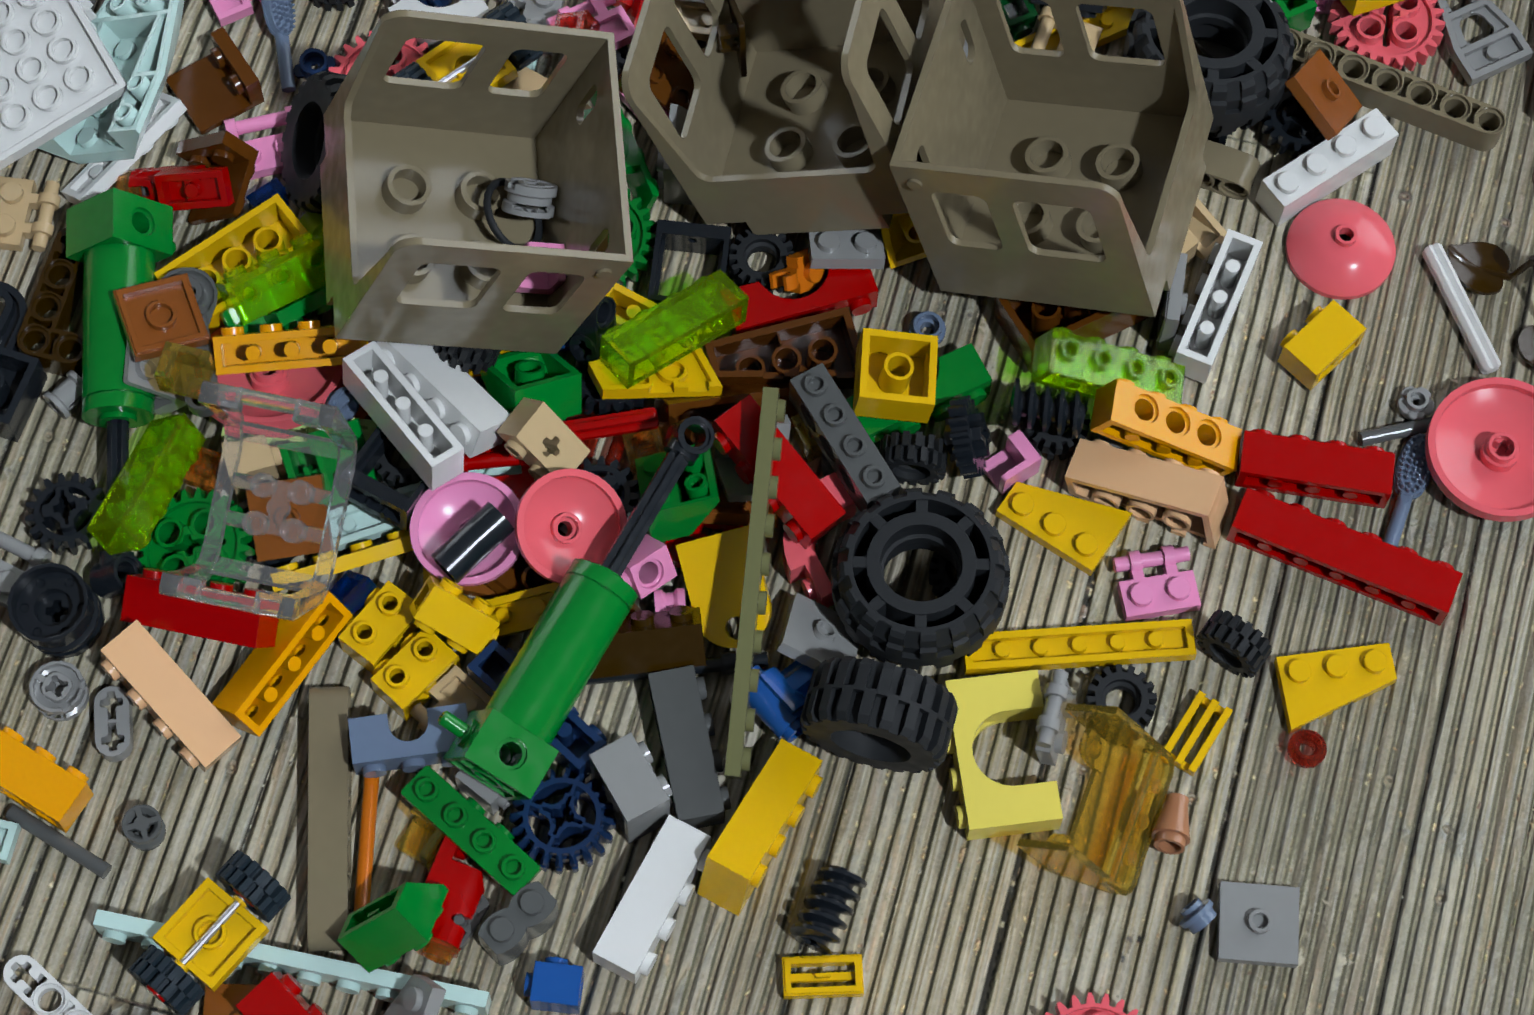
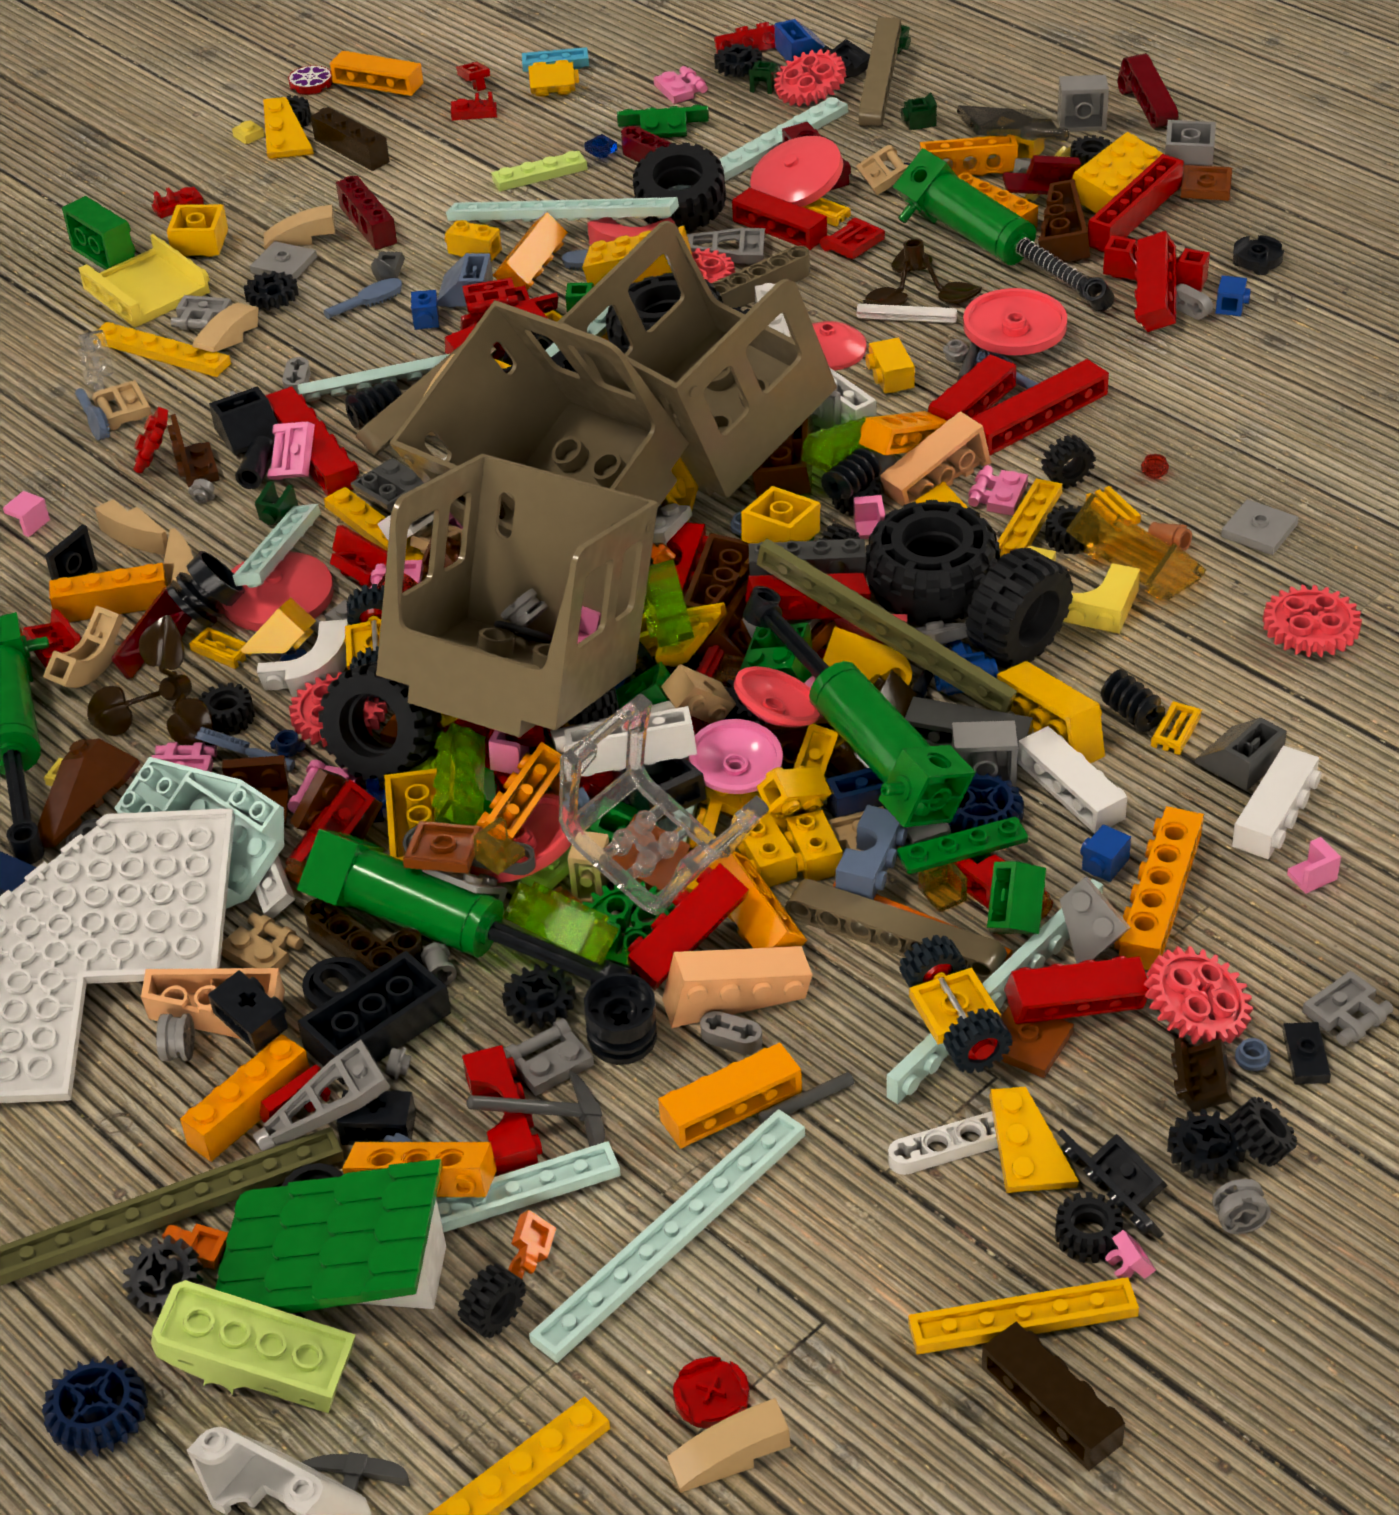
camera: 55 degrees left, 25 degrees down
(59, 690) = (682, 1050): light grey wheel -> none
(139, 820) = (831, 1039): dark grey wheel -> none
(472, 542) = (753, 745): black pin -> none
(527, 917) = (1047, 851): dark grey brick -> none
(967, 437) = (844, 514): black gear -> none
(1051, 725) = (1070, 551): light grey plate -> none
(1197, 915) = (1239, 545): sand blue plate -> none
(1323, 94) = (732, 297): dark orange plate -> none
(1324, 681) = (1116, 444): yellow wing -> none

